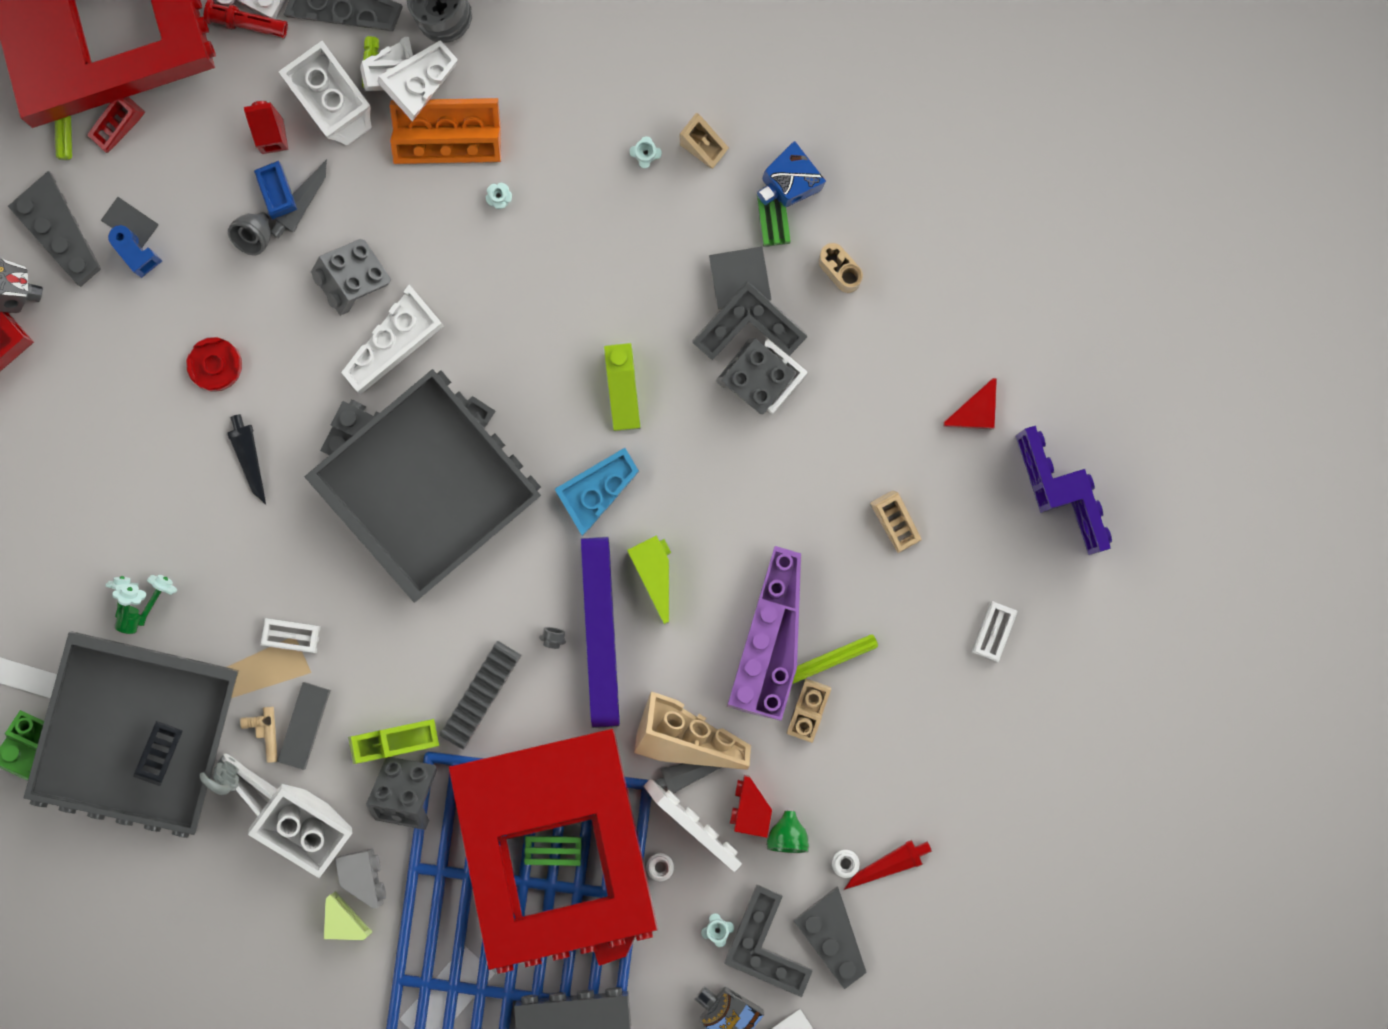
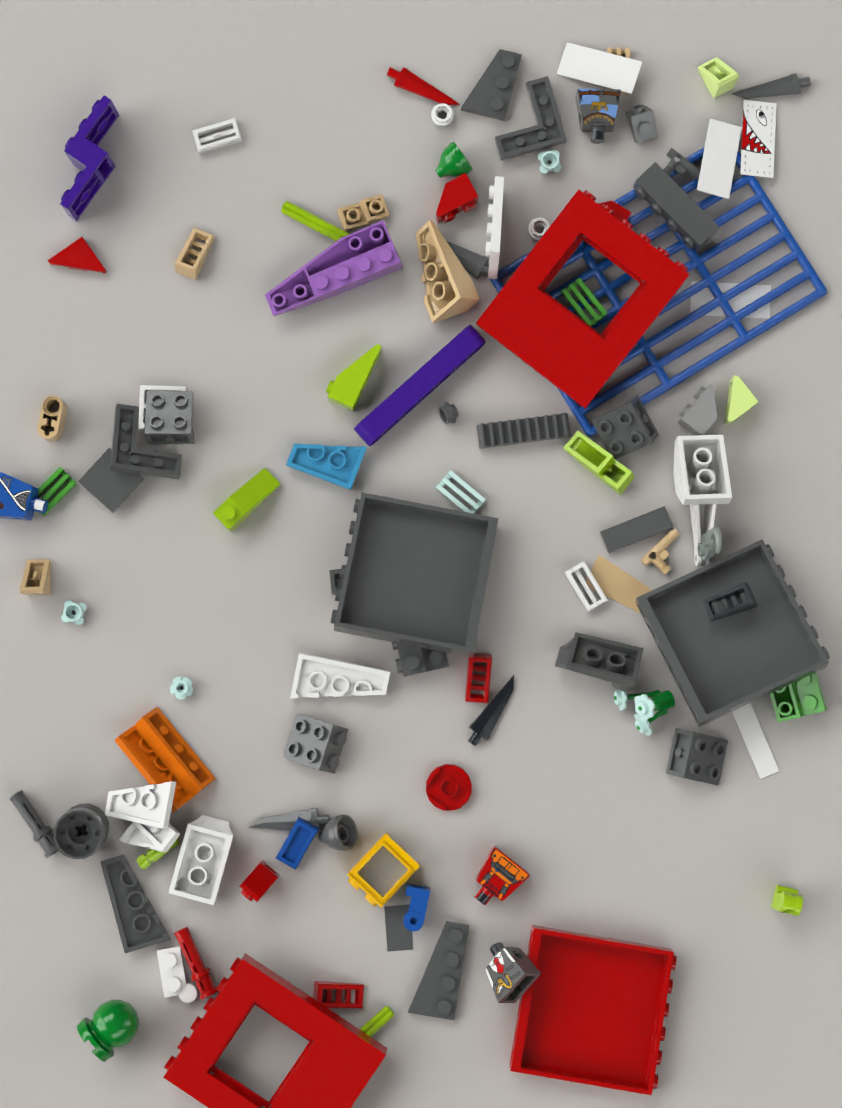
camera: 130 degrees left, 0 degrees up
(53, 609) = (697, 756): none -> dark grey bracket
(96, 345) = (499, 876): none -> torso
(188, 245) = (382, 870): none -> window
(208, 592) = (601, 660): none -> dark grey slope
(298, 484) = (479, 698): none -> red slope
(447, 593) = (451, 474): none -> light aqua tile

